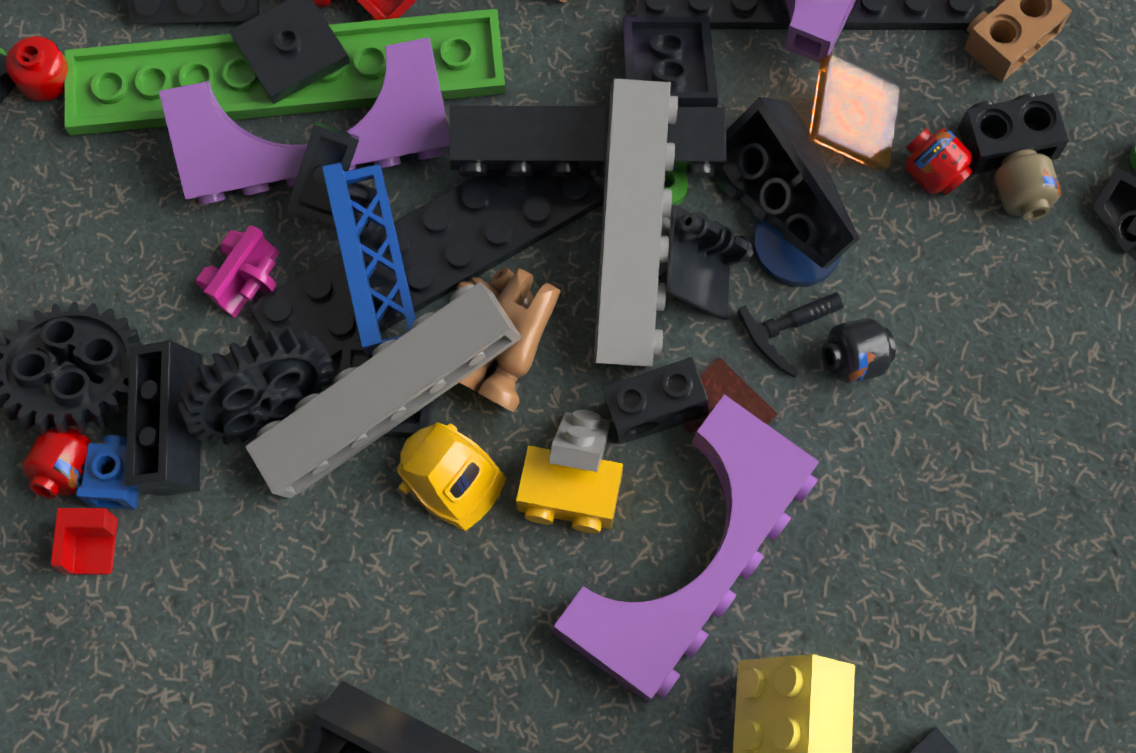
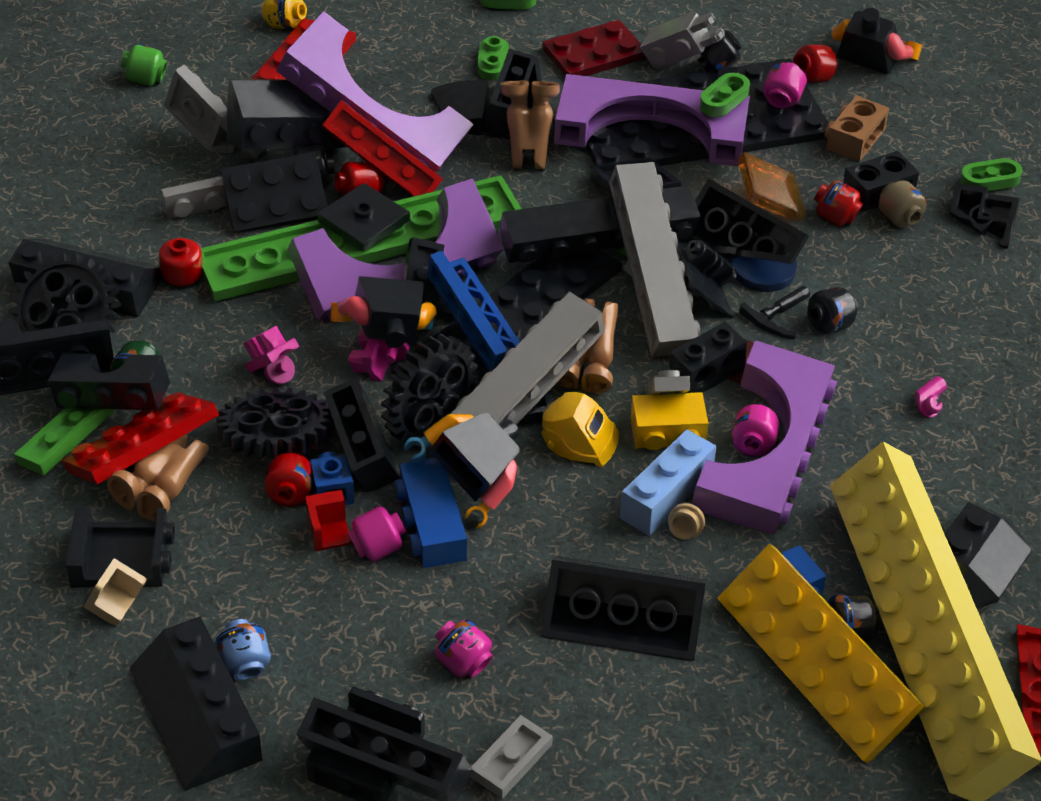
camera: 20 degrees left, 25 degrees down
(98, 257) = (268, 351): none -> dark pink hips
(135, 580) = (377, 534): none -> dark pink head
(214, 562) = (431, 513): none -> blue brick
(255, 234) = (386, 309): none -> black torso
(280, 509) = (475, 454): none -> torso
(529, 594) = (665, 482): none -> light blue brick
(535, 658) = (686, 521): none -> tan plate
(677, 533) = (755, 427): none -> dark pink head
(934, 528) = (927, 396): none -> dark pink arm

